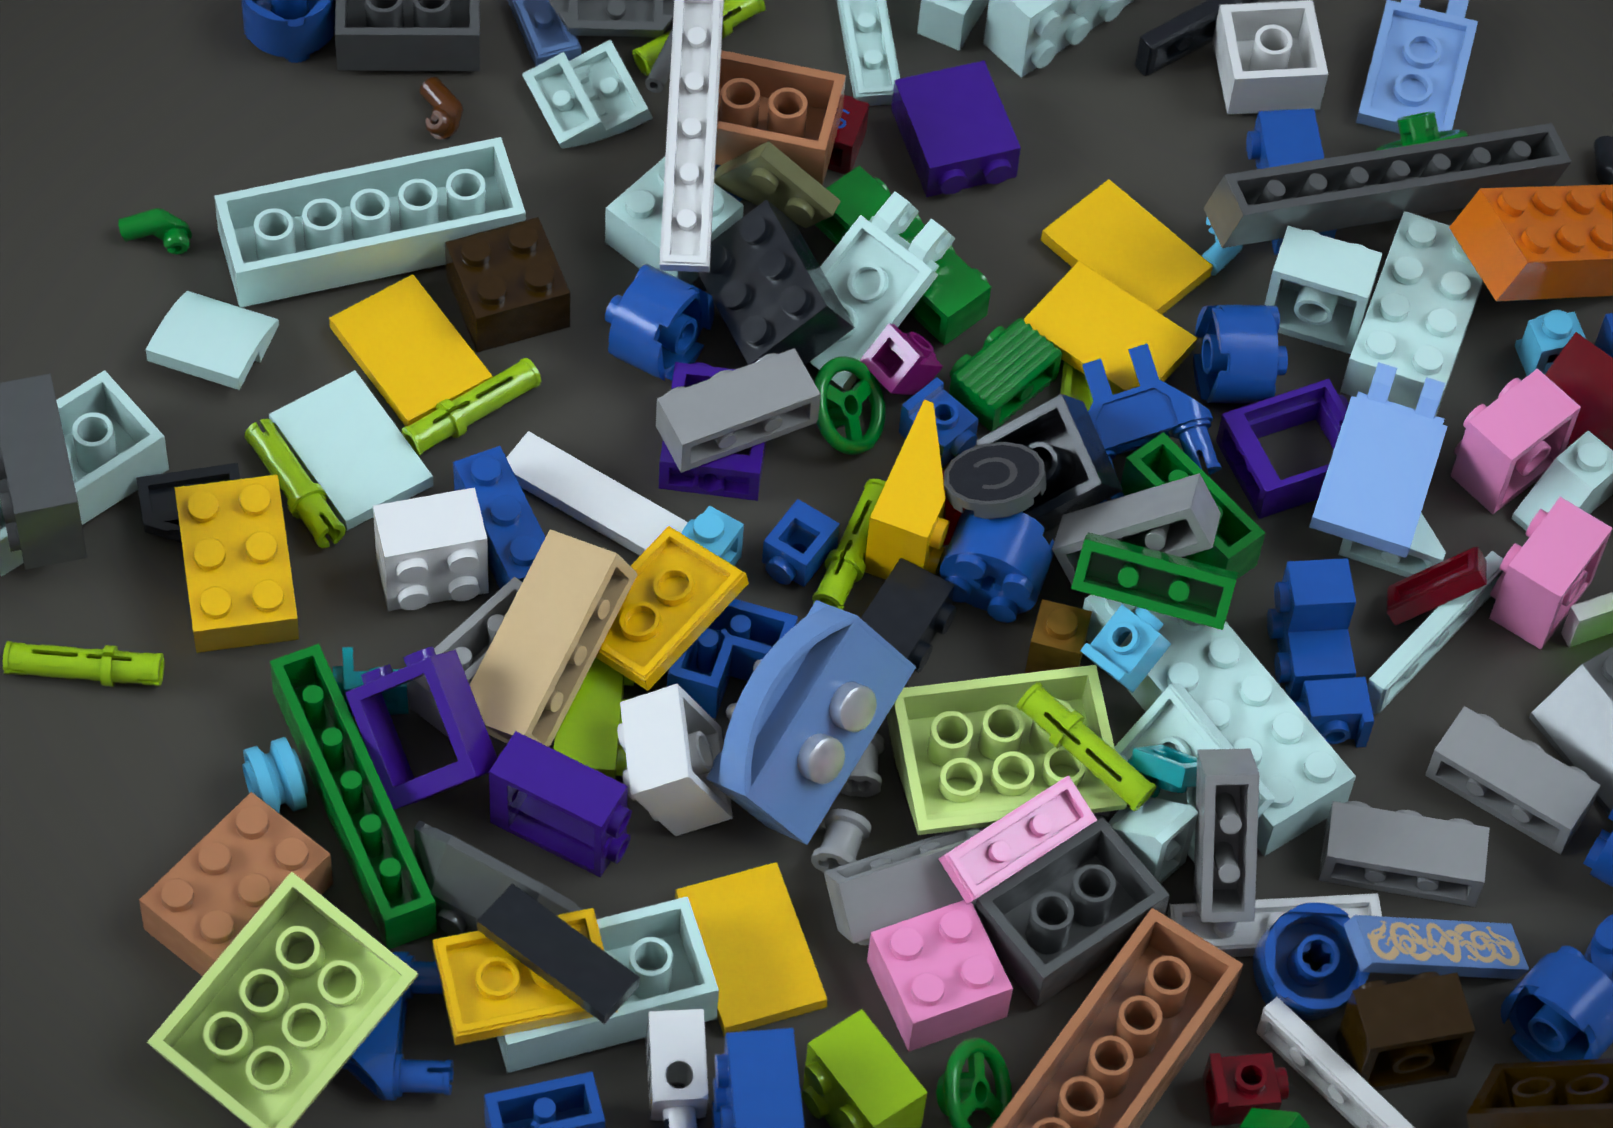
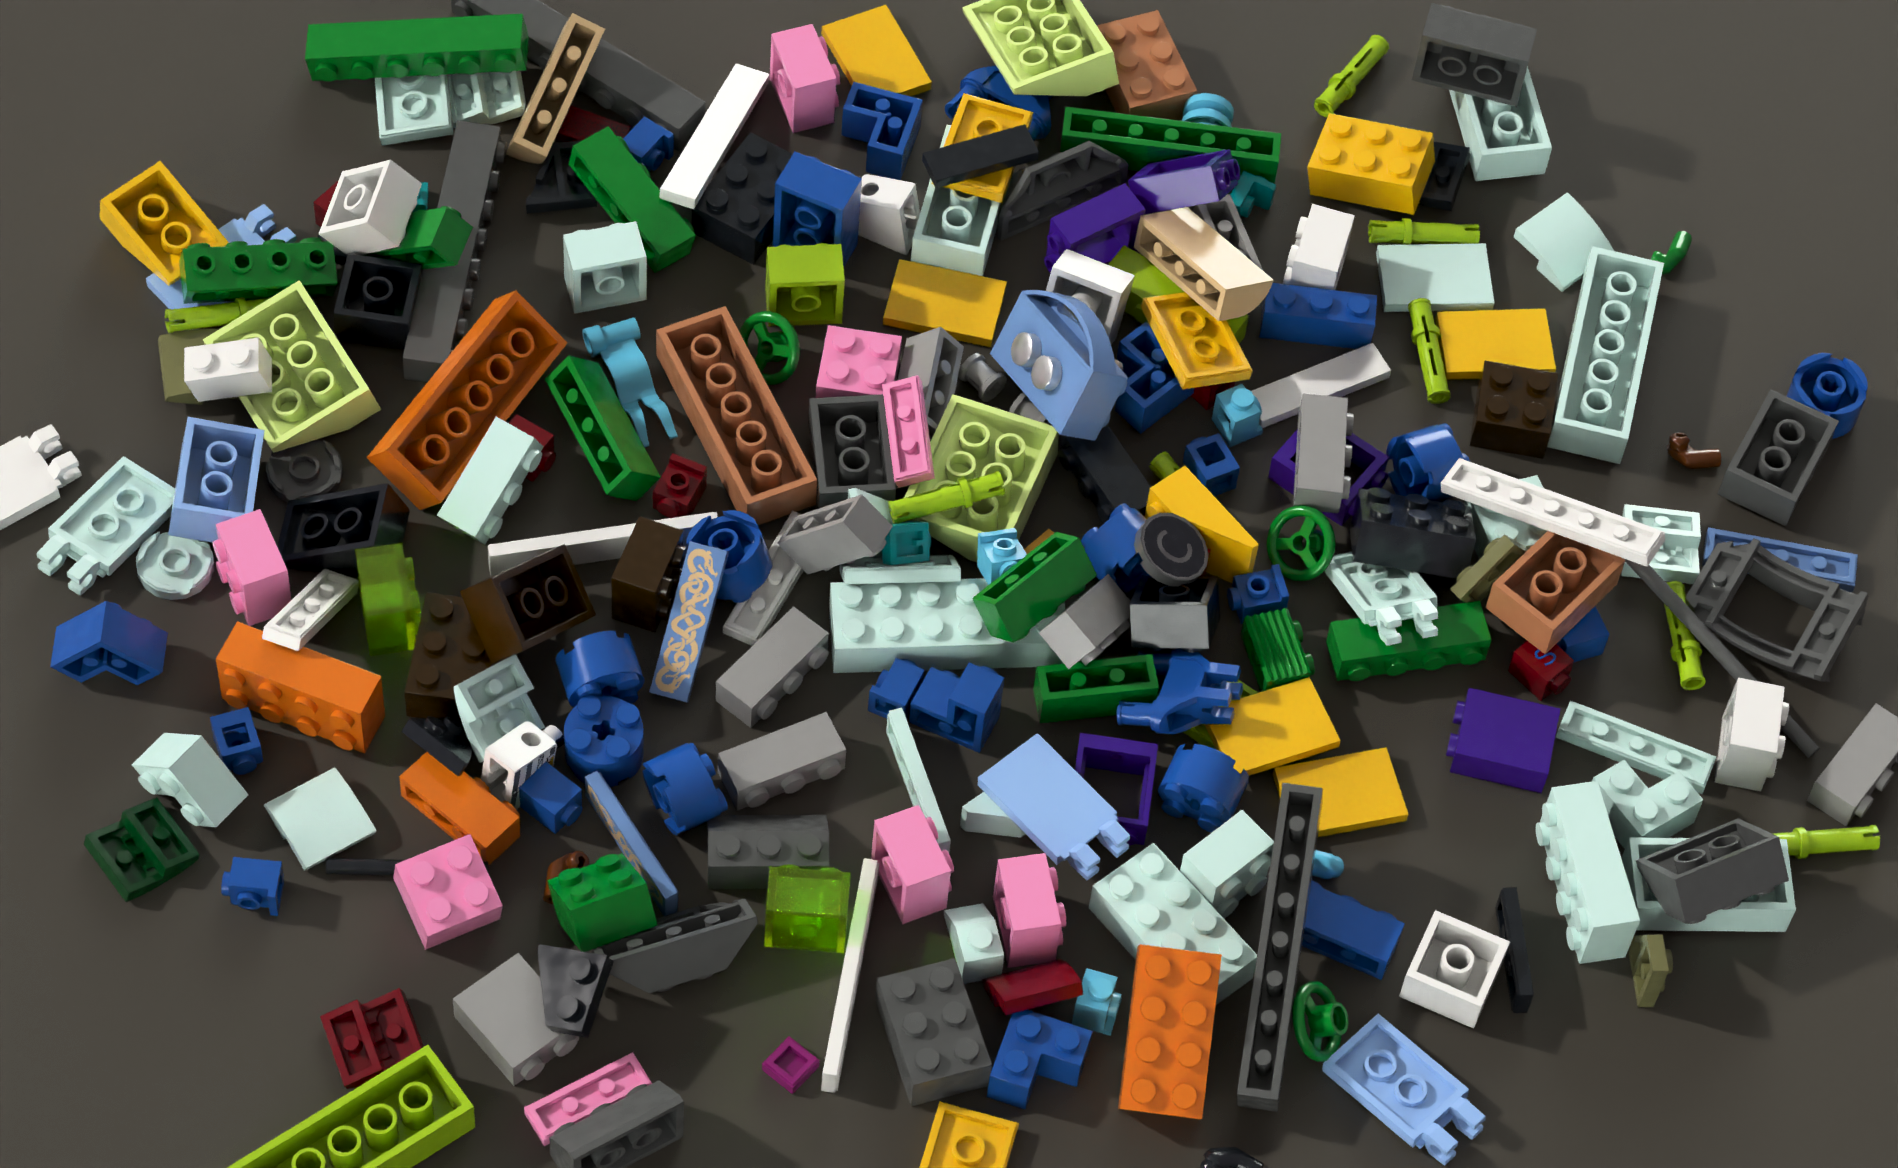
camera: 120 degrees right, 0 degrees up
(901, 361) = (1311, 582): magenta brick -> none
(1436, 585) = (946, 792): dark red tile -> none

